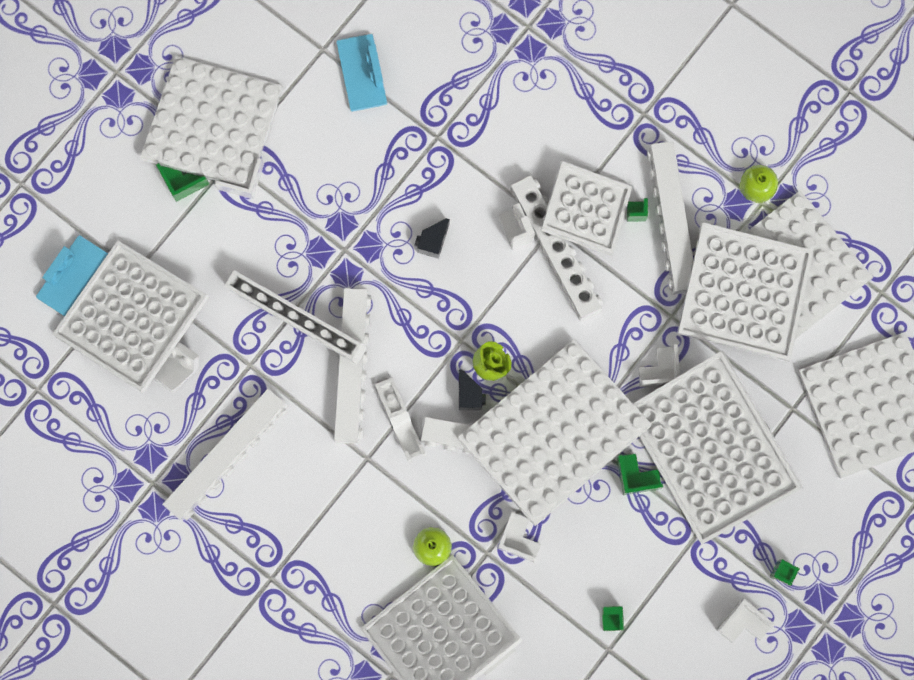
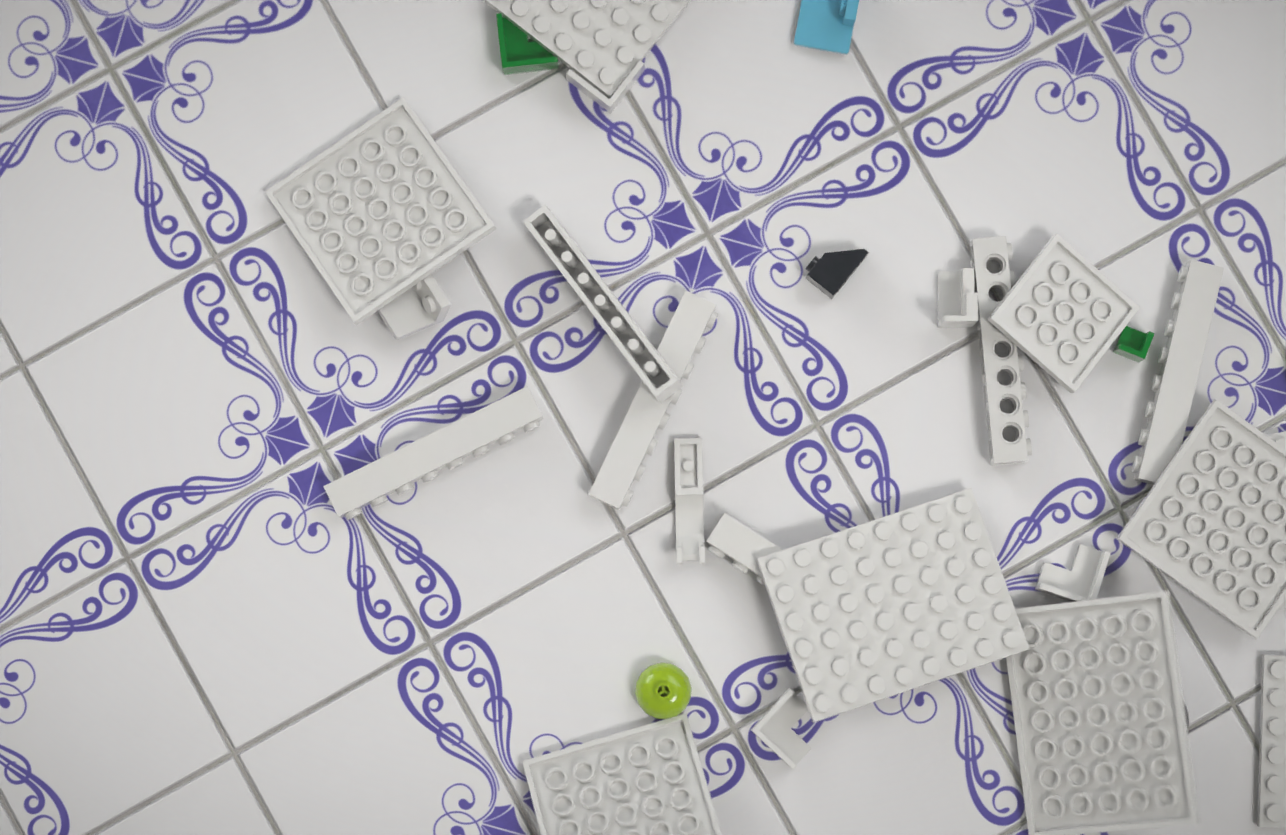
camera: 25 degrees right, 5 degrees up
(70, 274) = (321, 119): medium azure bracket -> none
(470, 393) = (798, 503): black slope -> none
(491, 361) = (845, 473): lime cylinder -> none
(632, 480) = (973, 714): green panel -> none

